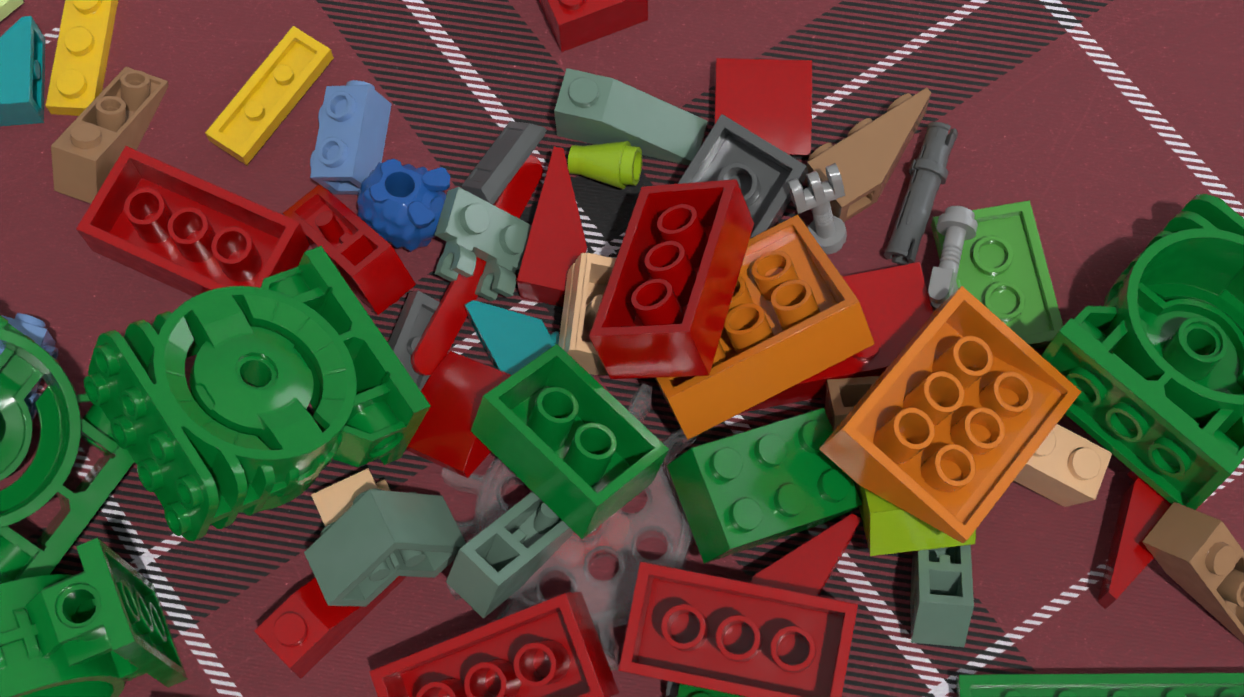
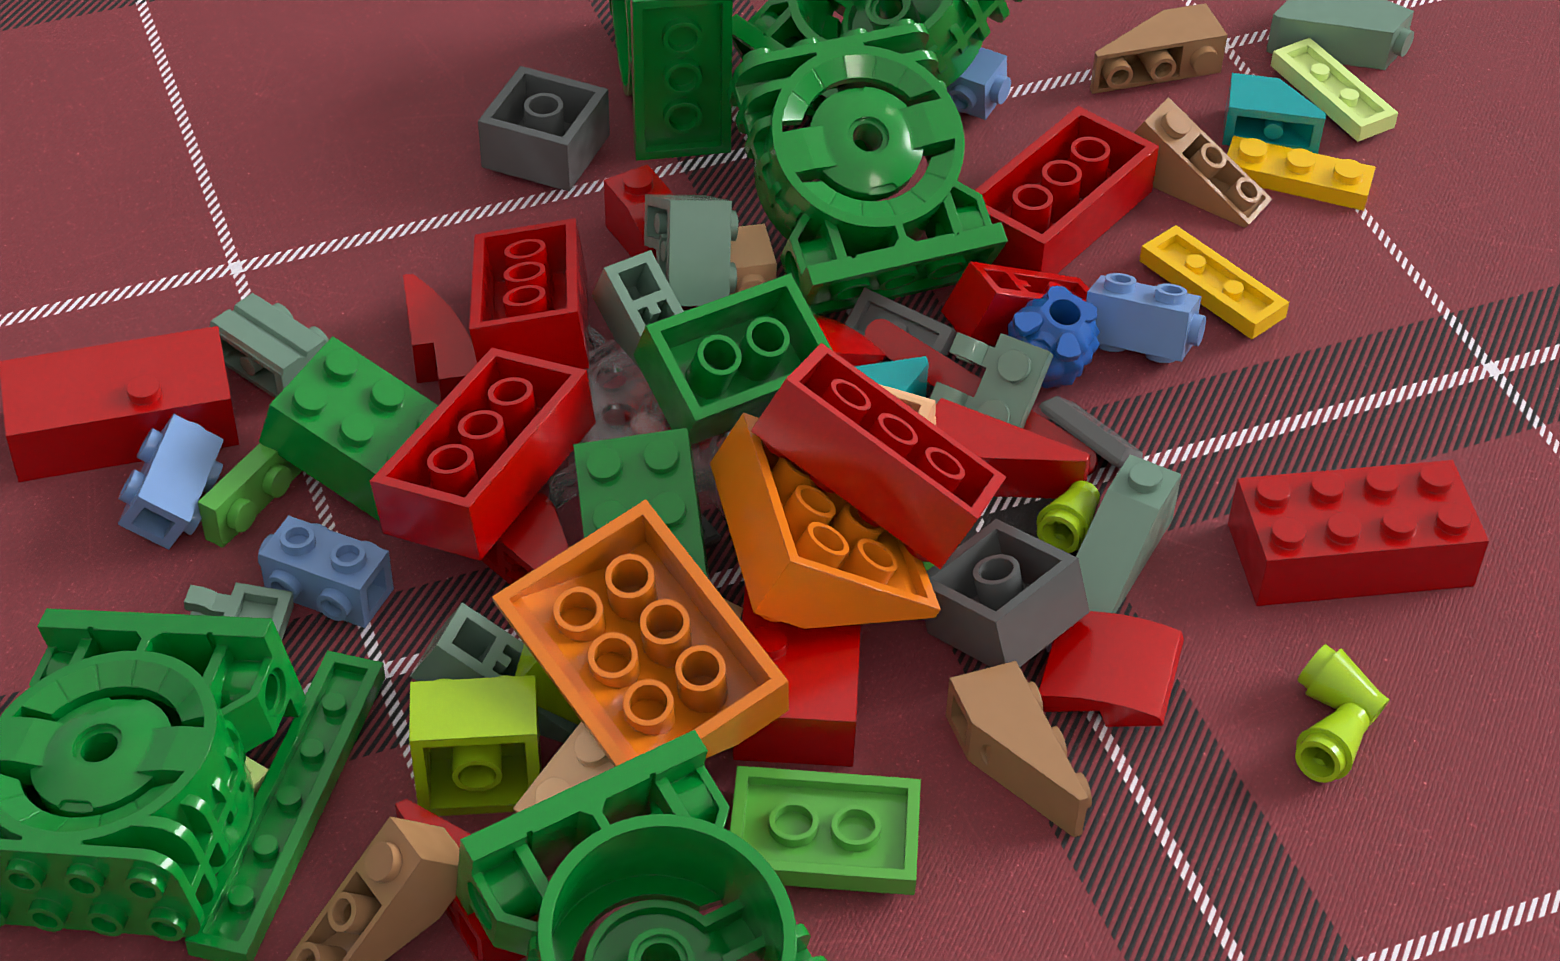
camera: 100 degrees right, 25 degrees down
(826, 228) = (963, 638): light grey hinge -> none
(925, 180) = (980, 797): dark grey pin -> none
(956, 225) = (815, 742): light grey hinge -> none
(1037, 552) = (474, 743): none -> lime brick

